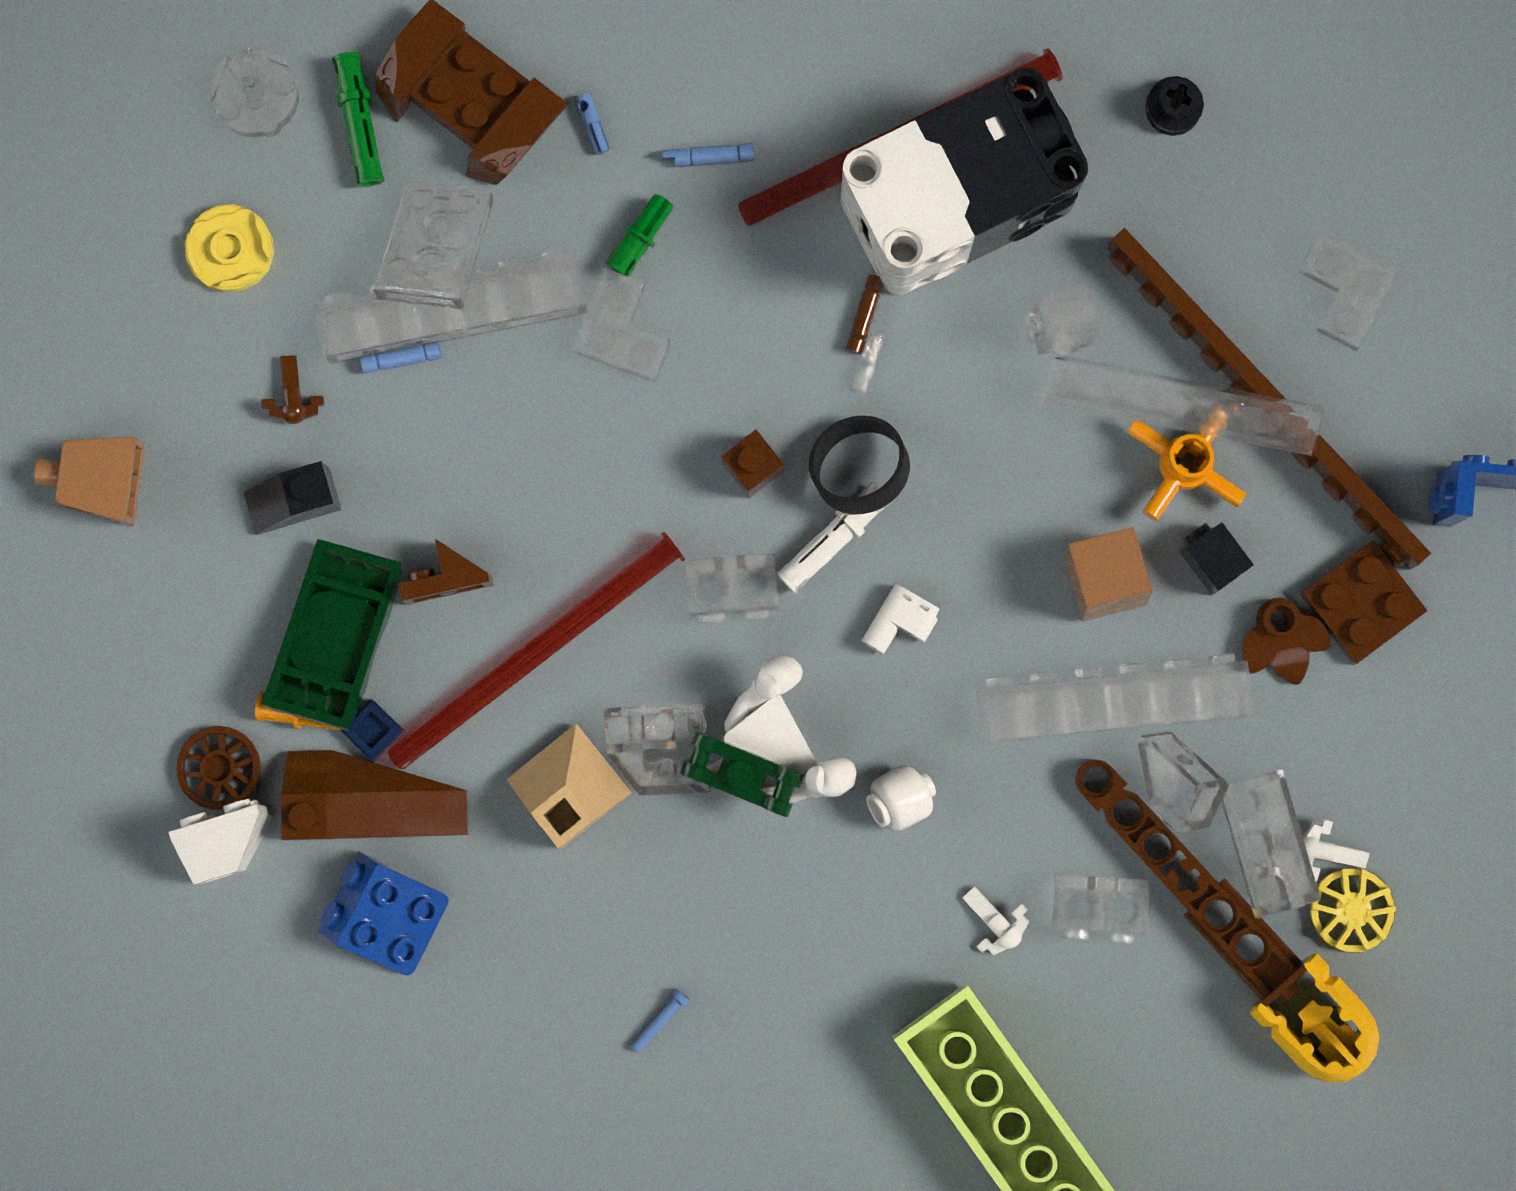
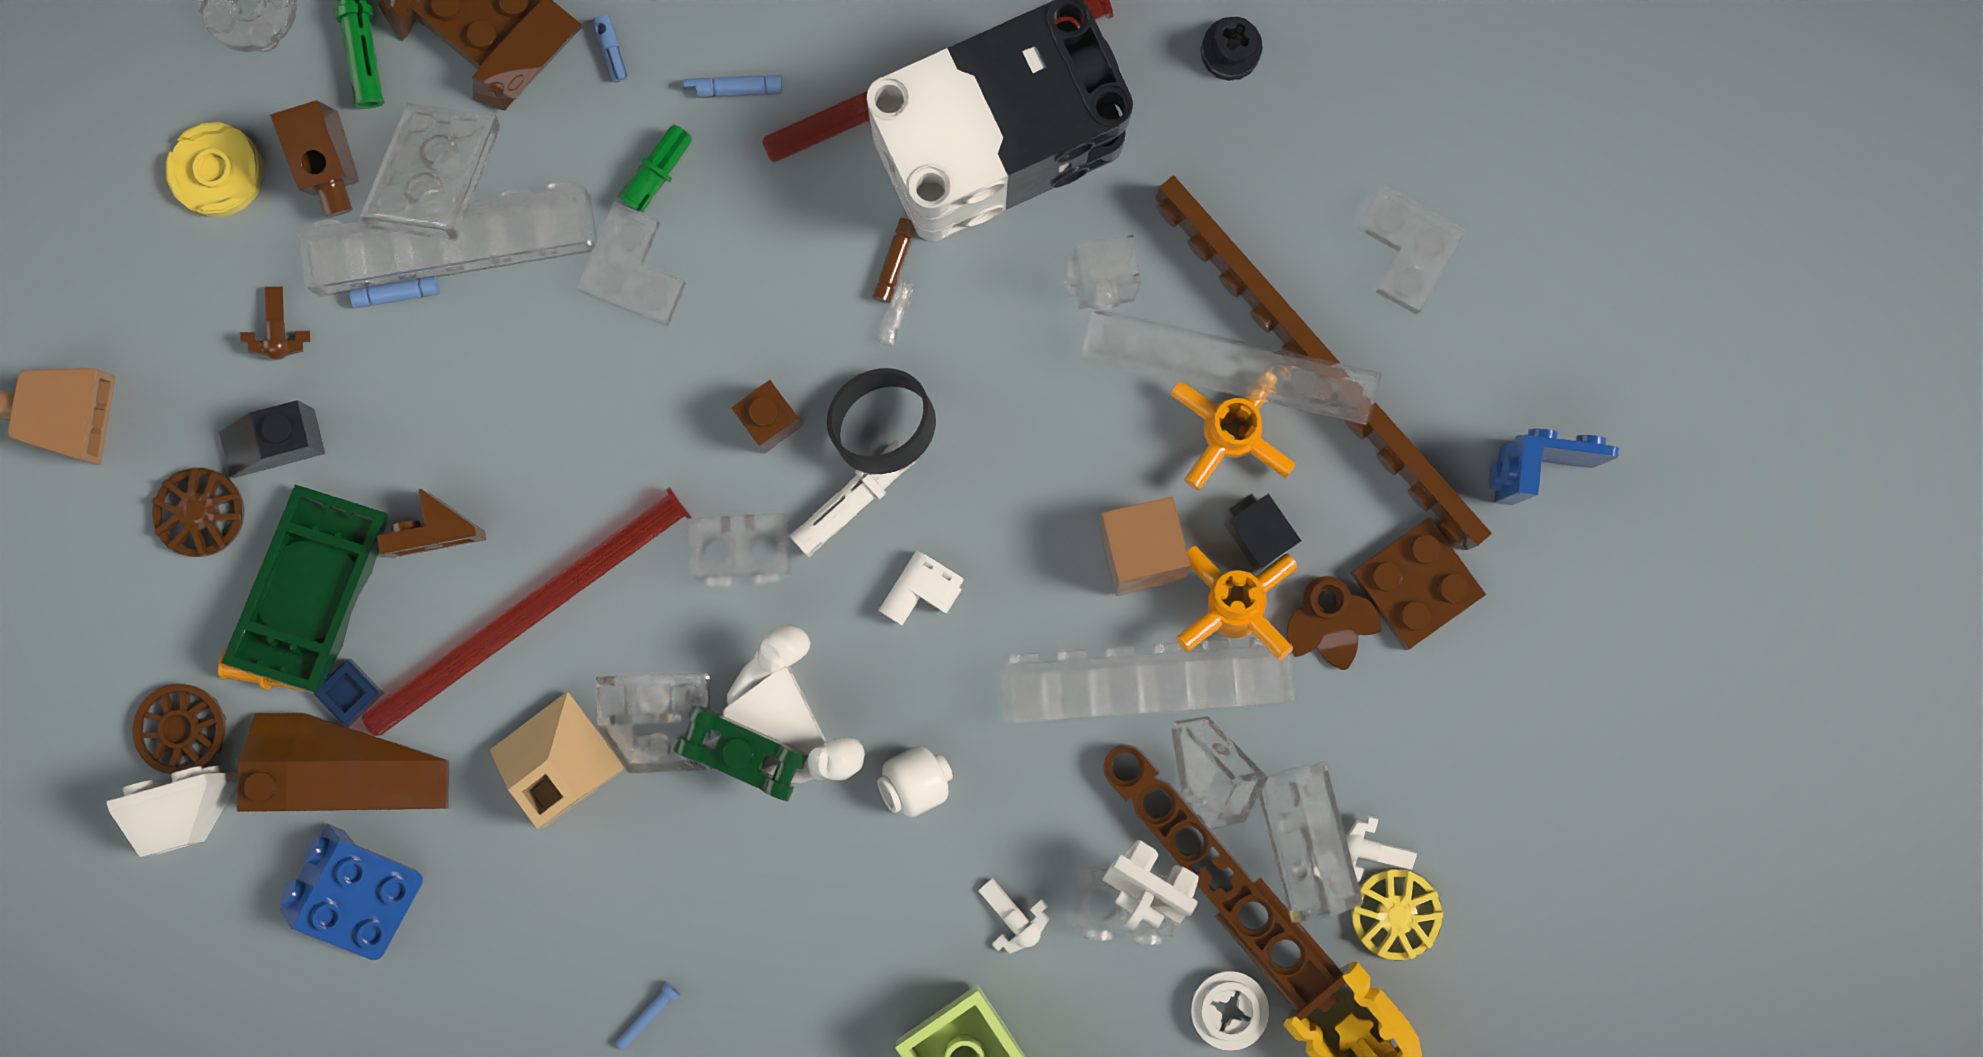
camera: 10 degrees left, 0 degrees up
(227, 567) = (197, 512): none -> reddish brown wheel
(324, 214) = (308, 138): none -> reddish brown torso
(1120, 892) = (1148, 895): none -> white hips
(1206, 630) = (1236, 620): none -> light orange bar
(1218, 992) = (1237, 1032): none -> white gear

